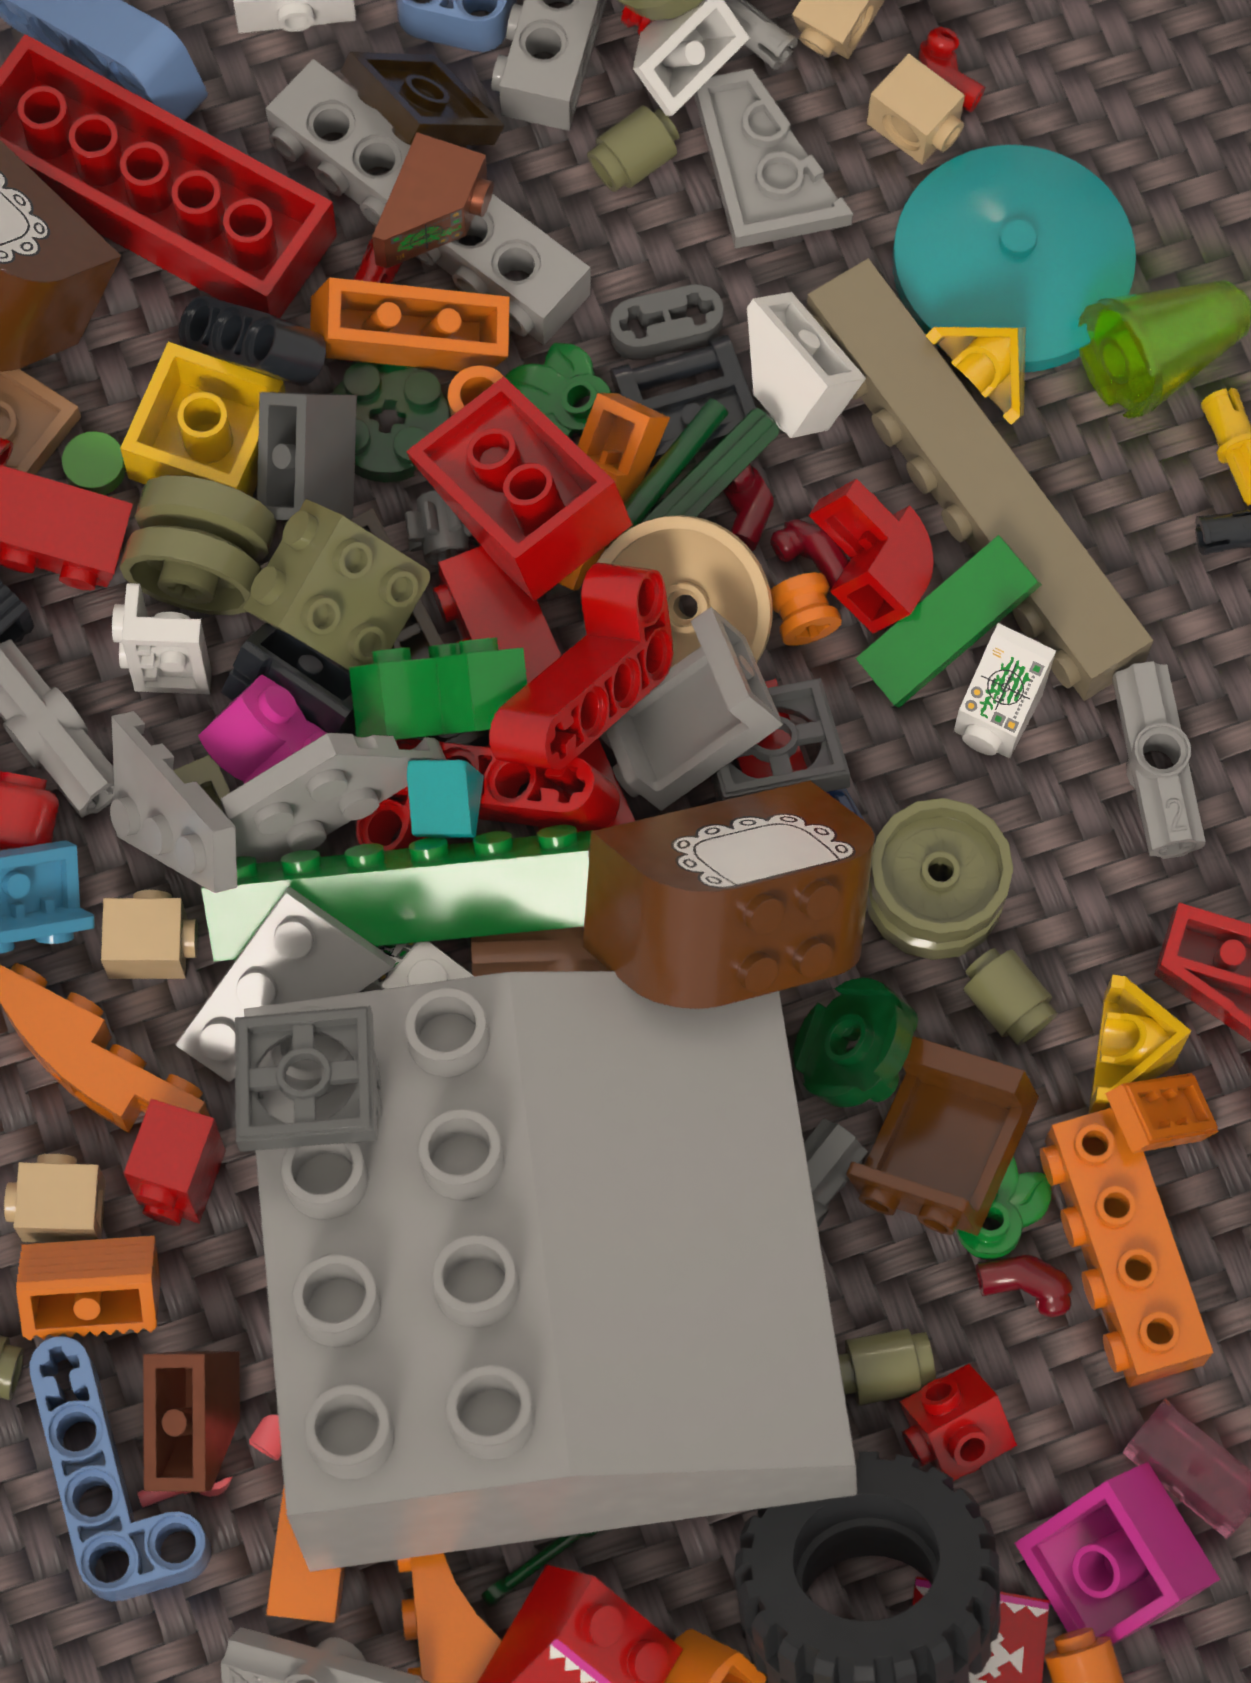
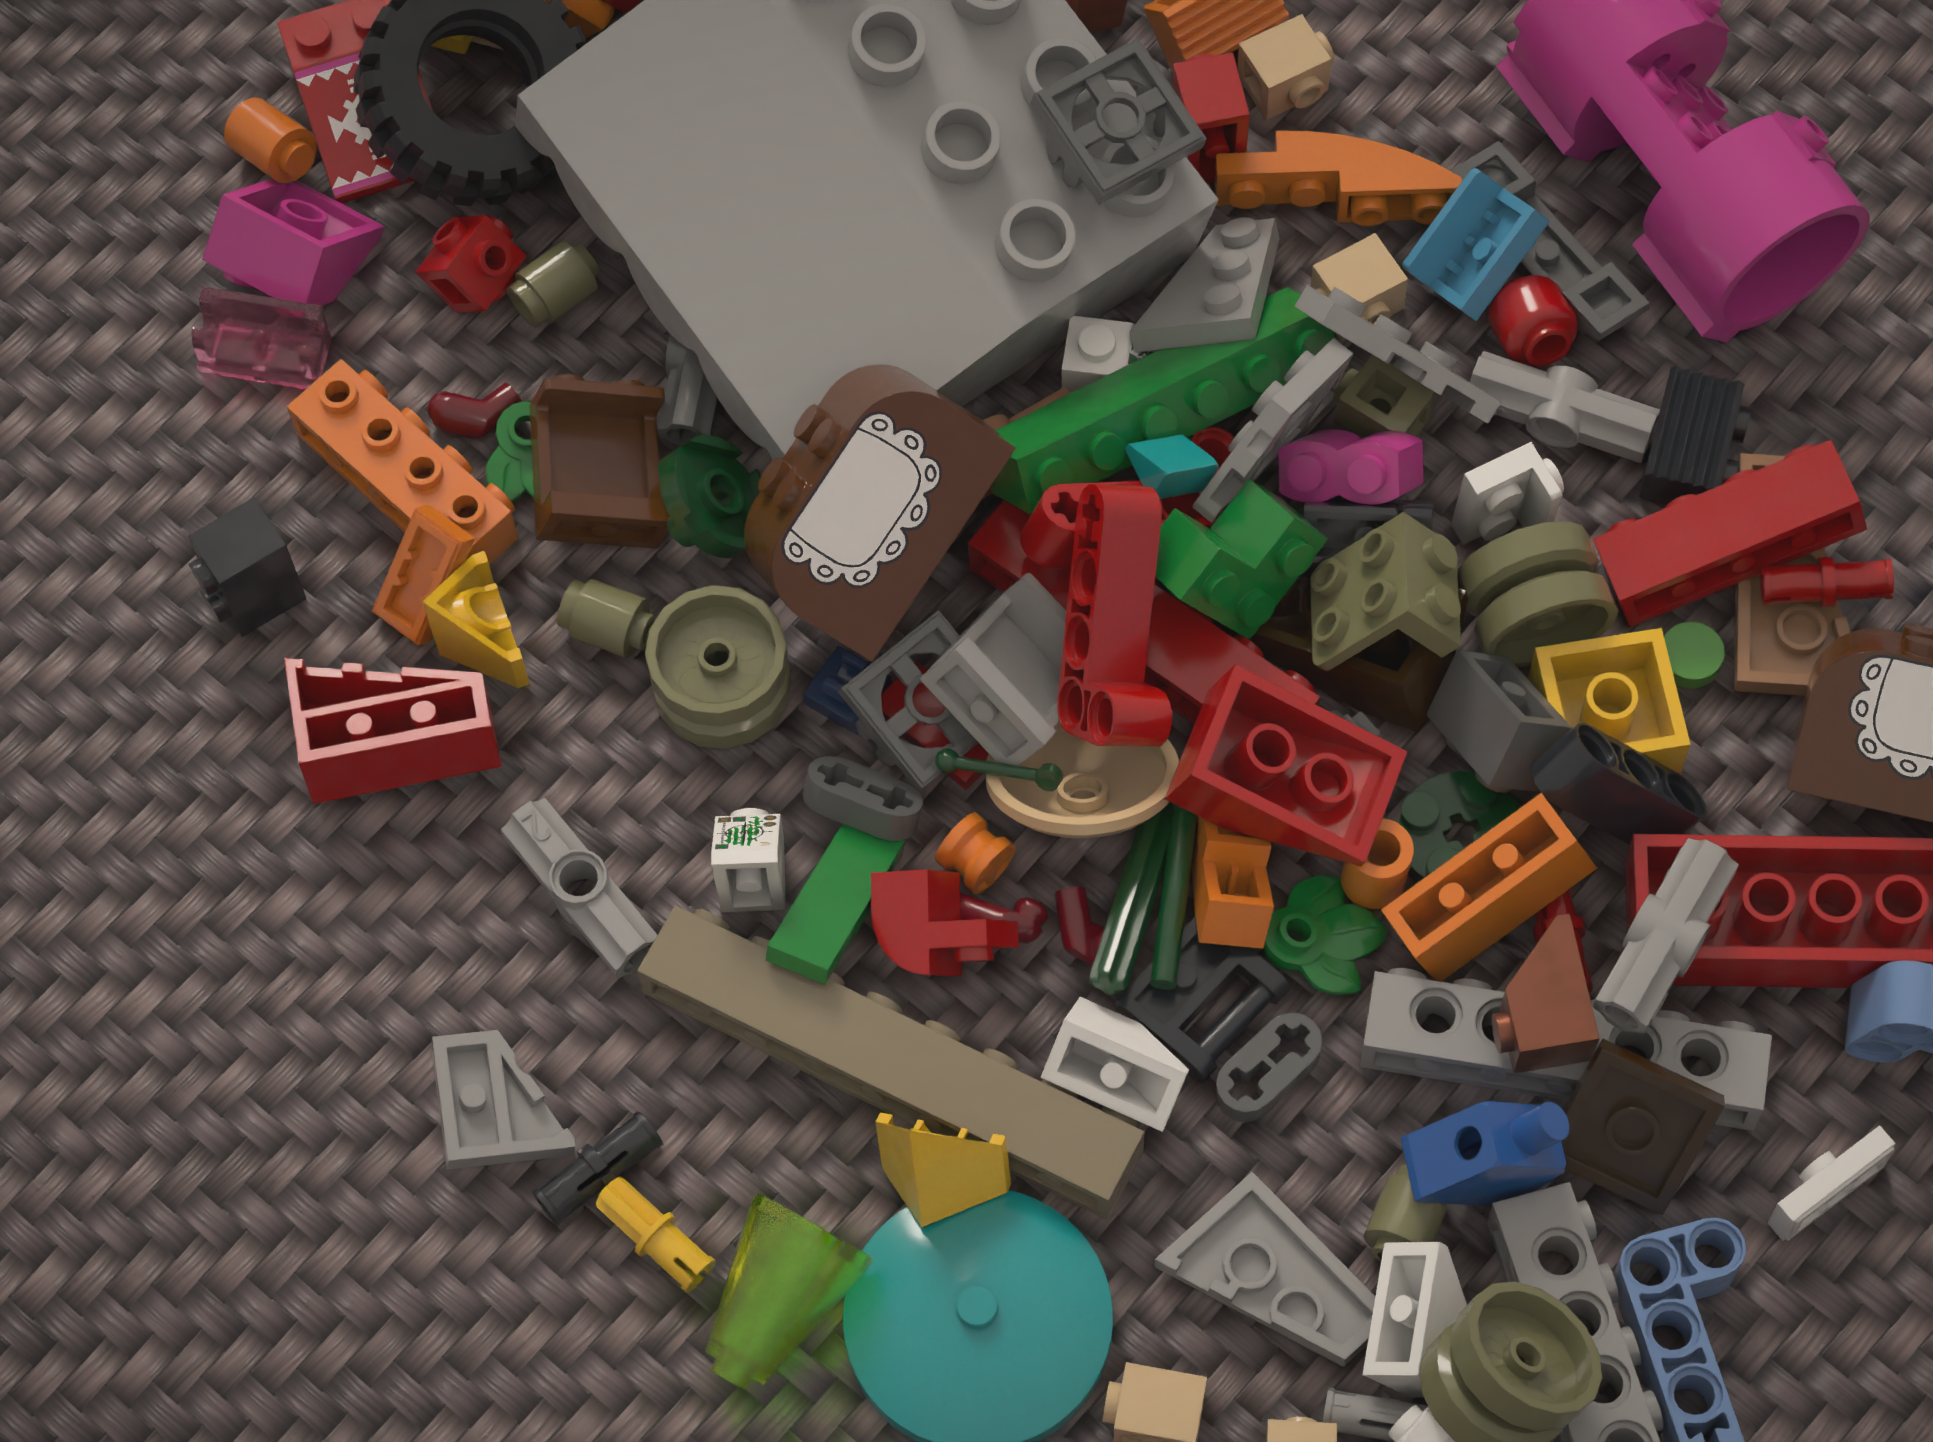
camera: 155 degrees right, 5 degrees down
(305, 186) = (1665, 936): none -> light grey piece
(551, 127) = (1513, 1146): none -> blue torso
(787, 676) = (1046, 777): none -> dark green hinge
(882, 700) = (862, 798): none -> dark grey beam

